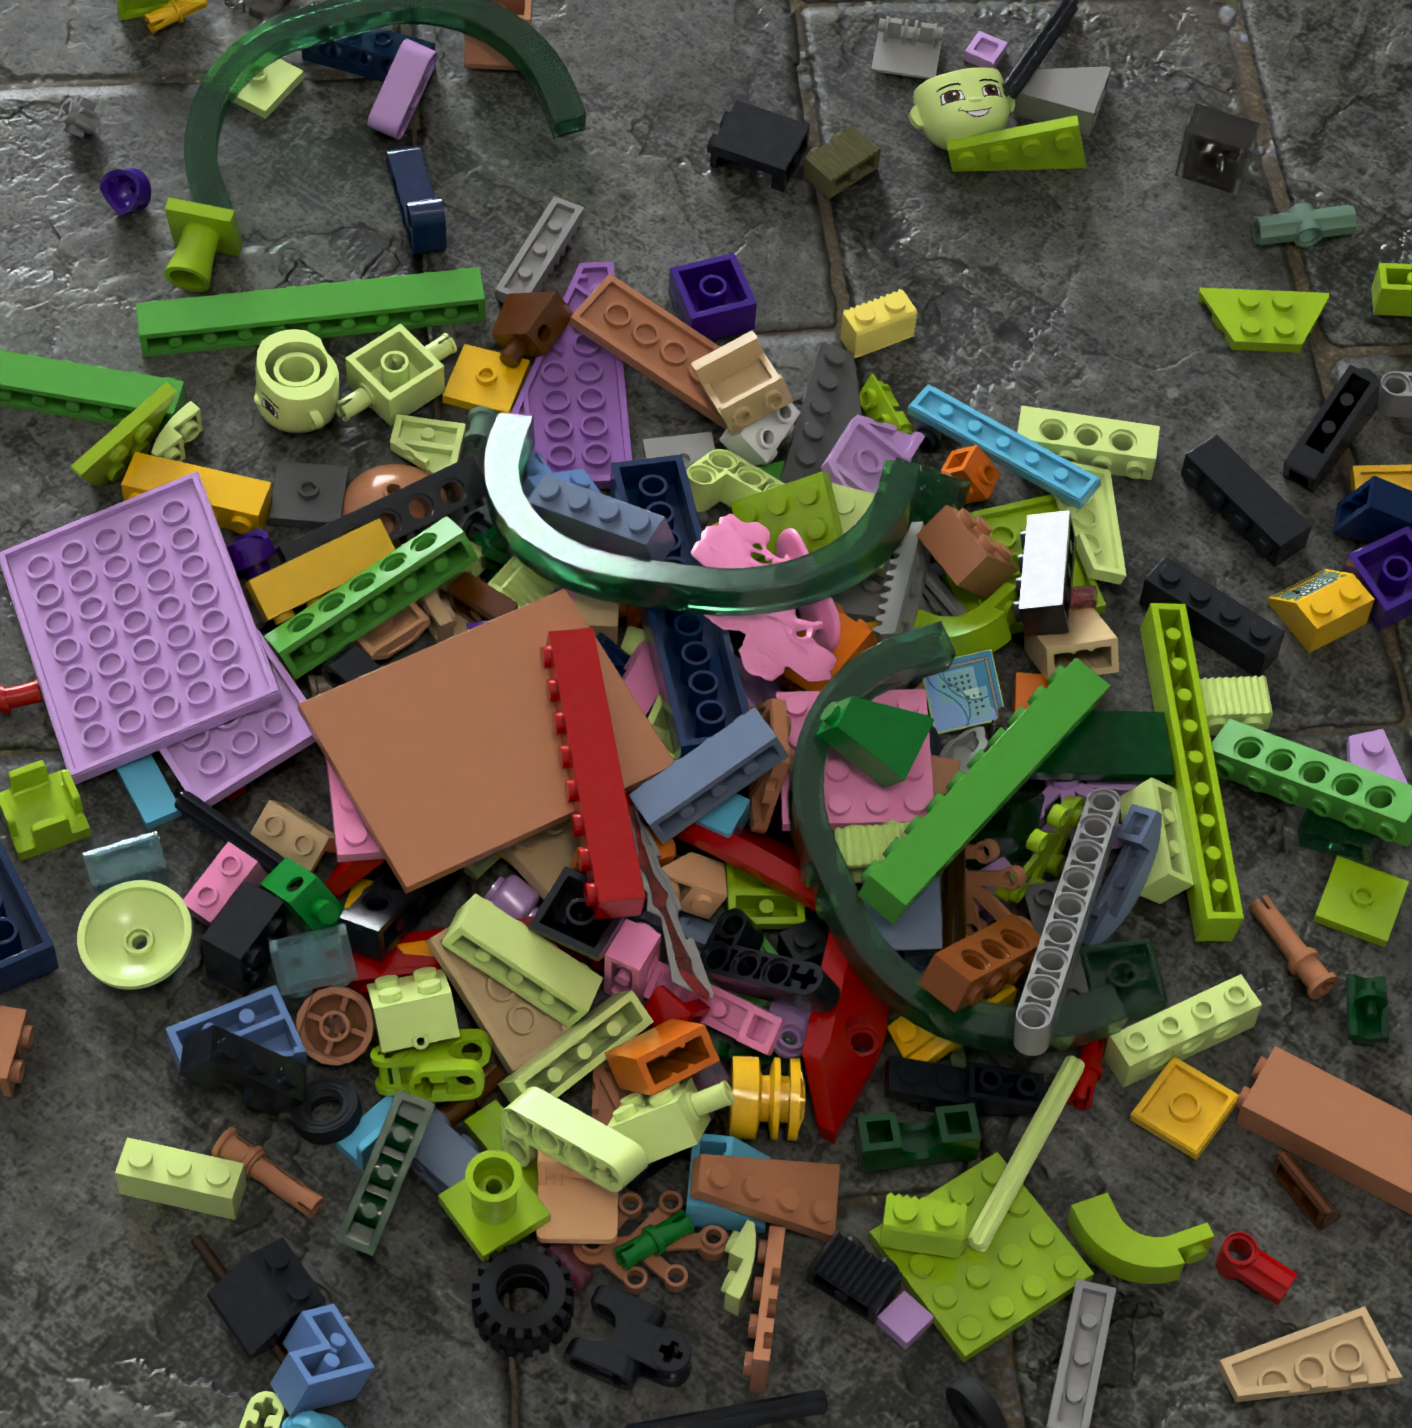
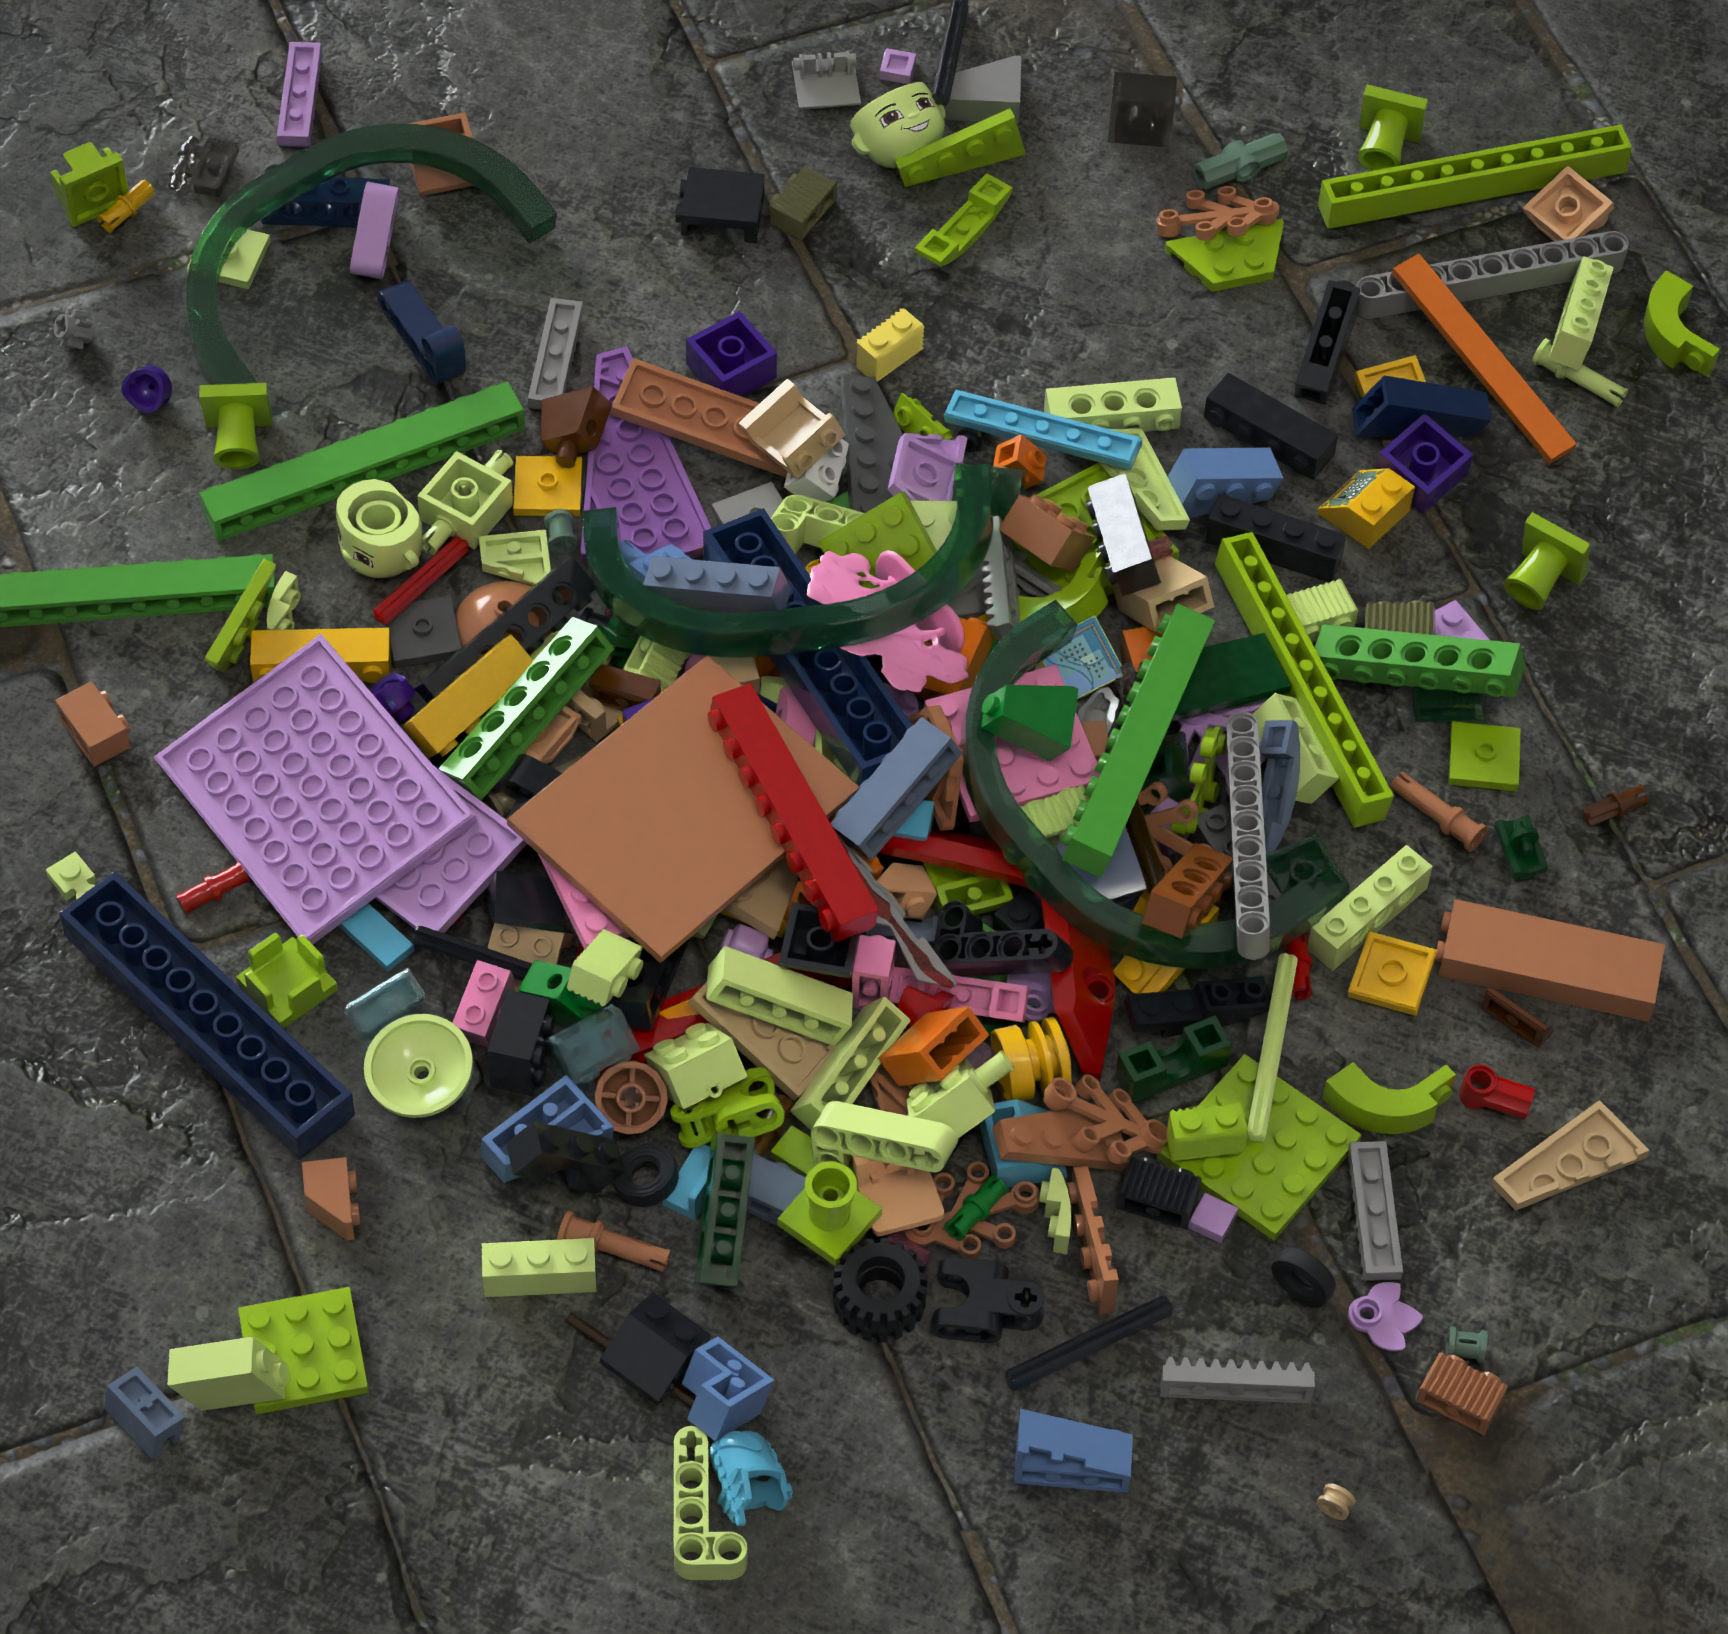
camera: 15 degrees left, 0 degrees up
(298, 795) = (524, 902): none -> black slope
(323, 444) = (420, 580): none -> red axle
(346, 883) = (605, 968): none -> yellowish green brick
(862, 1210) = (1146, 1134): none -> nougat plant
(1001, 223) = (967, 224): none -> lime slope
(1190, 539) = (1233, 472): none -> medium blue wedge
(1278, 283) = (1217, 216): none -> nougat plant
(1321, 734) = (1410, 617): none -> olive brick

